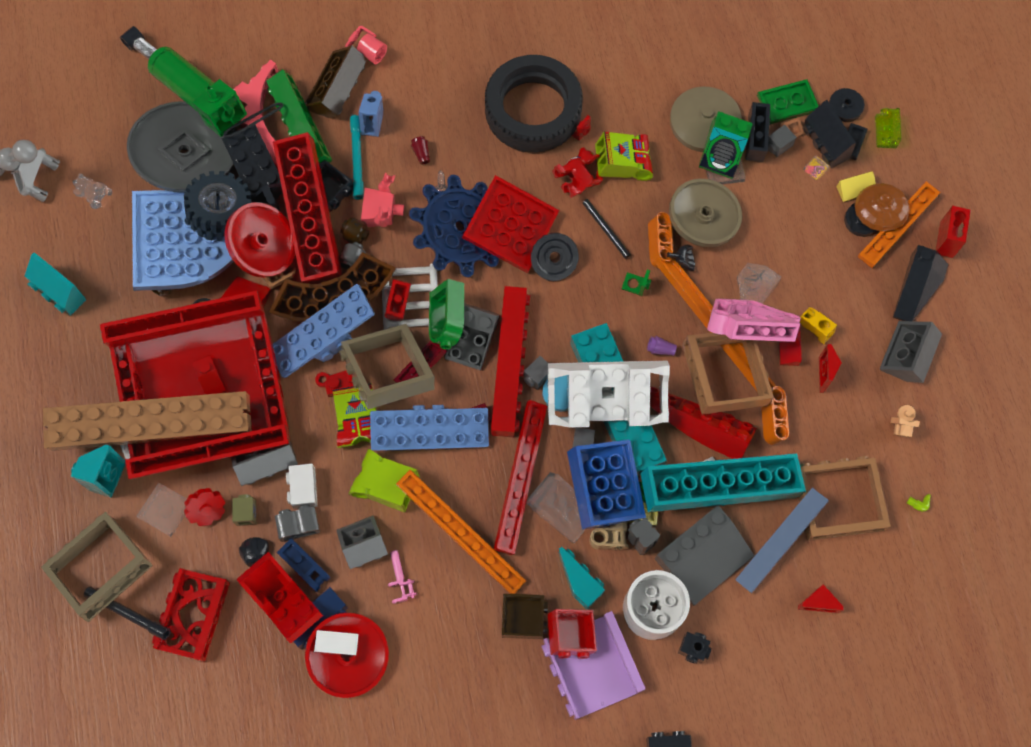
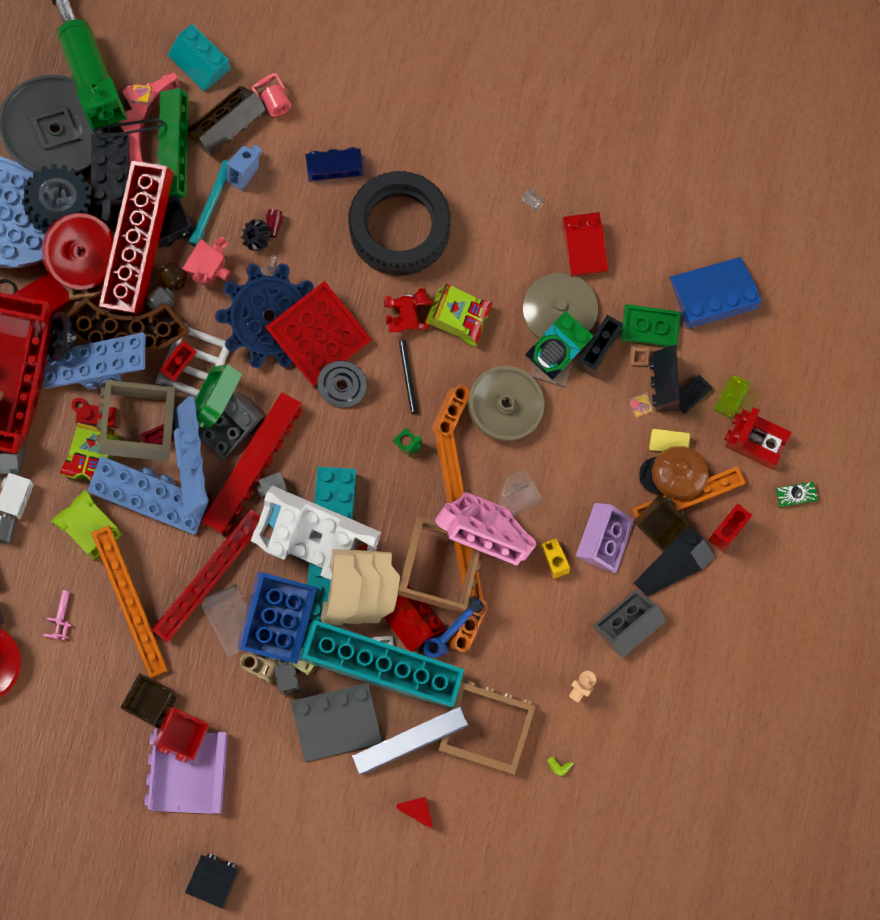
camera: 25 degrees right, 5 degrees up
(250, 88) = (141, 94): none -> tile
(280, 322) = (61, 336): none -> black gear
(285, 41) = (199, 58): none -> teal slope
(361, 542) = (41, 570): dark grey slope -> none
(415, 158) = (256, 235): none -> black gear
(450, 80) = (334, 164): none -> clear blue brick
(454, 376) = (189, 456): none -> medium blue bracket
(581, 583) = (213, 695): teal slope -> none
(583, 128) = (435, 268): red bracket -> none
(583, 437) = (281, 568): flat silver brick -> none
(634, 41) = (532, 200): none -> clear bush
(660, 346) = (398, 513): medium lavender cone -> none
(672, 606) = (269, 729): white brick -> none
(675, 418) = (361, 587): none -> tan slope
(684, 257) = (464, 438): black piece -> none
(687, 647) = (277, 793): black brick -> none
(698, 56) = (585, 243): none -> red slope
(778, 393) = (473, 607): none -> blue piece
(781, 141) = (618, 363): dark grey brick -> none
(790, 351) = (515, 573): red slope -> none
(827, 52) = (715, 292): none -> blue slope
(828, 366) = (539, 606): red slope -> none
(846, 112) = (704, 363): black plate -> none
(849, 288) = (605, 537): none -> lavender slope
(892, 253) = (662, 522): none -> dark brown piece
(922, 152) = (738, 439): none -> red brick
(984, 184) = (796, 494): none -> tile

